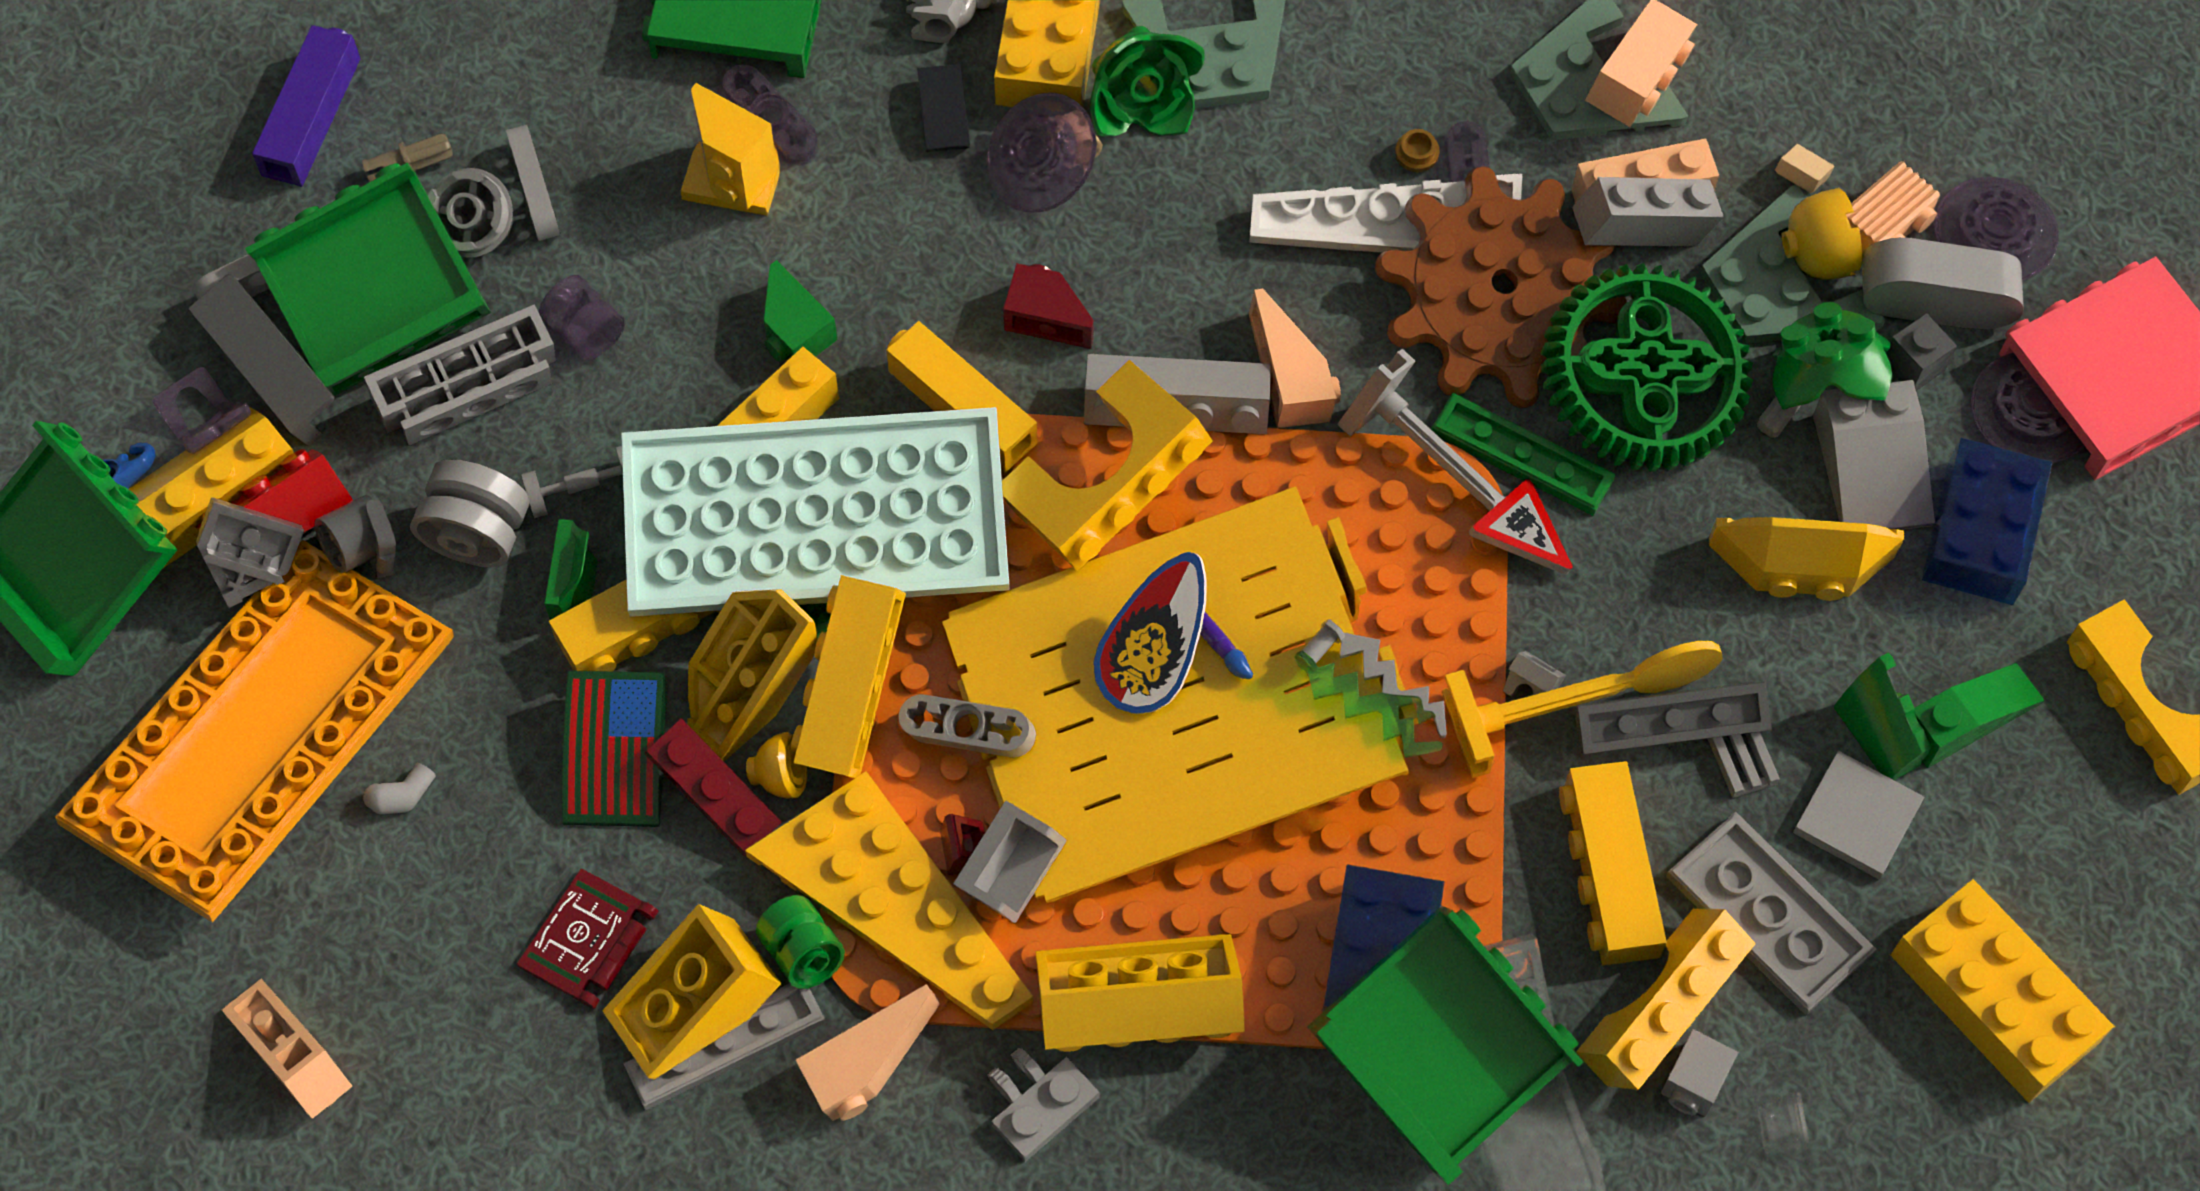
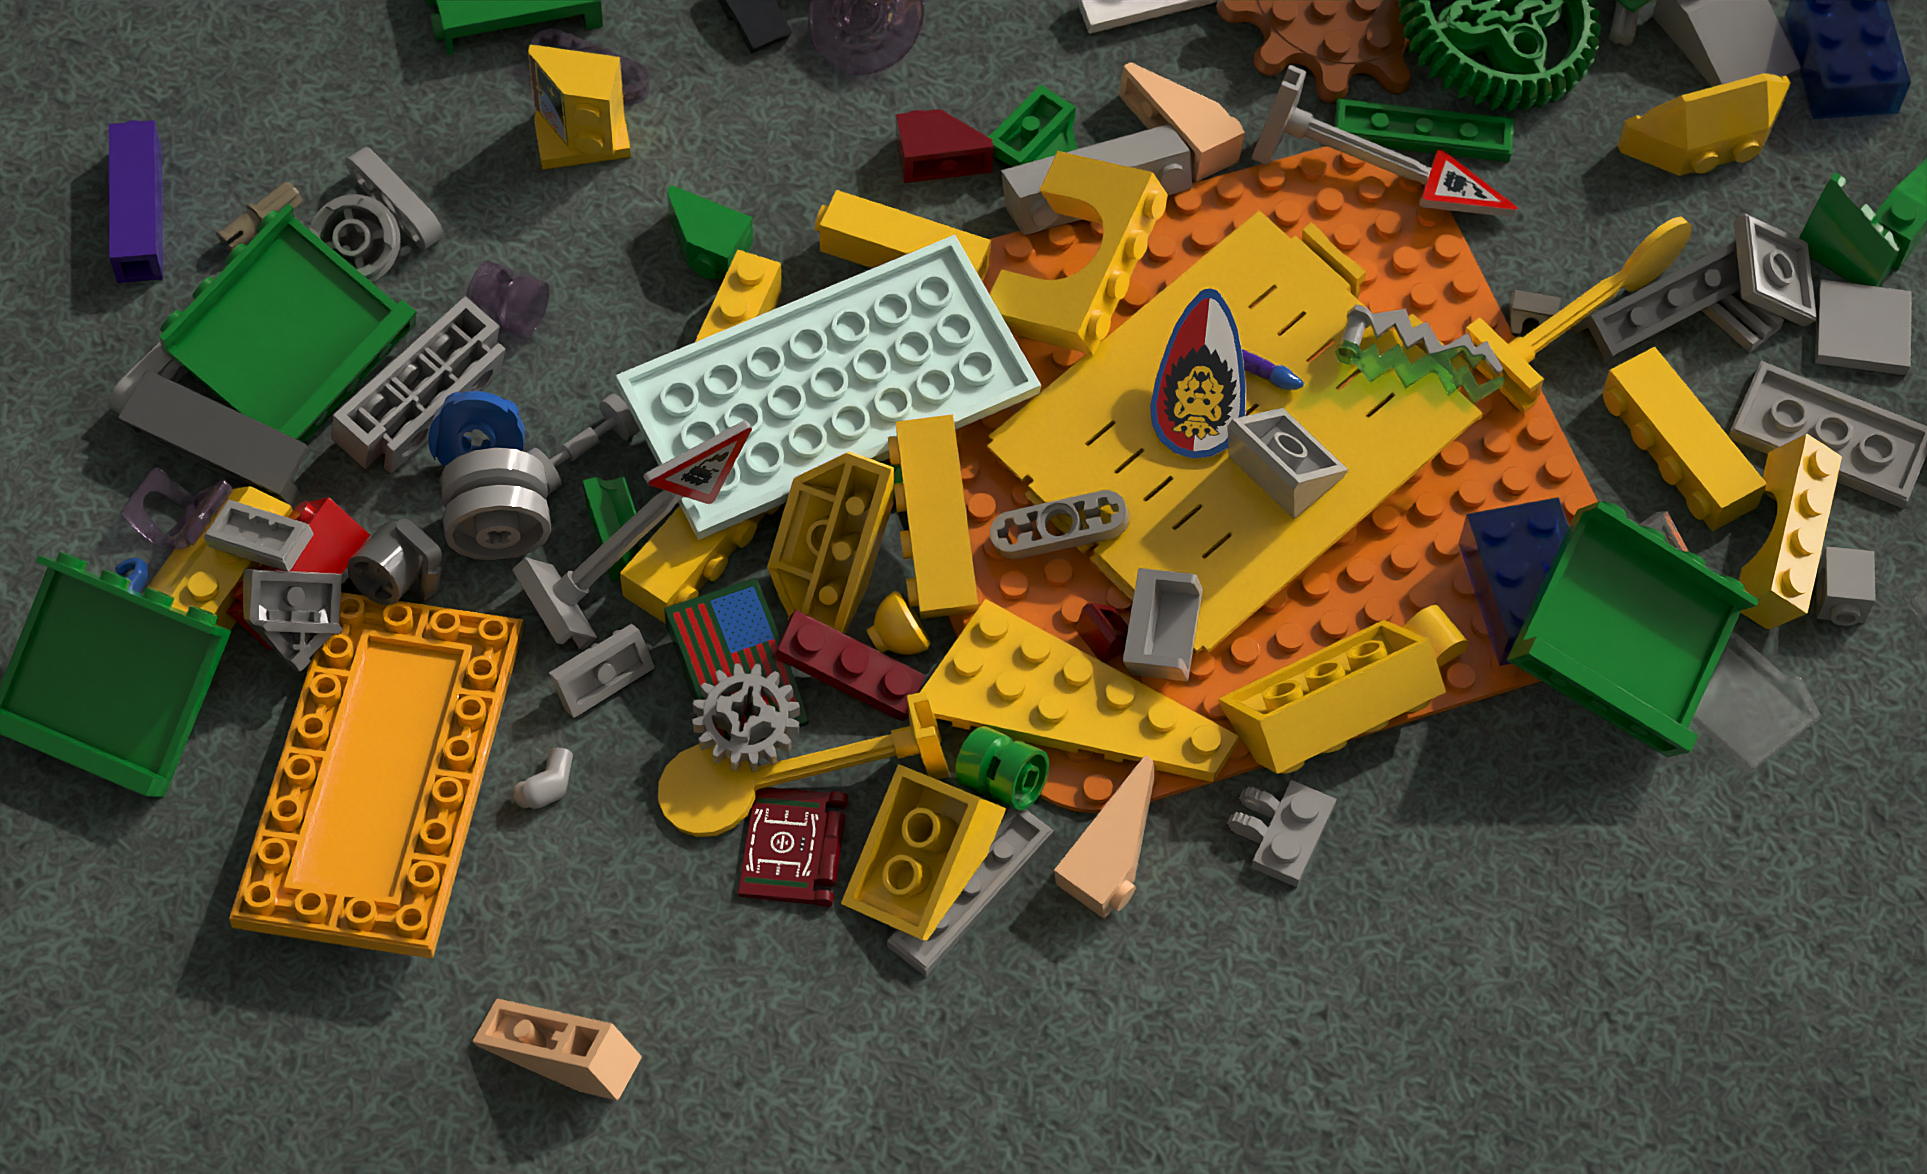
camera: 25 degrees left, 5 degrees down
(241, 469) = (258, 535): none -> light grey plate
(489, 617) = (692, 475): none -> light grey piece
(494, 706) = (601, 670): none -> light grey plate
(498, 423) = (470, 412): none -> blue plate
(543, 853) = (713, 799): none -> yellow piece
(580, 819) = (728, 710): none -> light grey gear
(1145, 324) = (1035, 129): none -> green slope
(1200, 742) = (1283, 459): none -> light grey slope
(1266, 971) = (1443, 634): none -> yellow brick
(1790, 726) = (1774, 270): none -> light grey tile

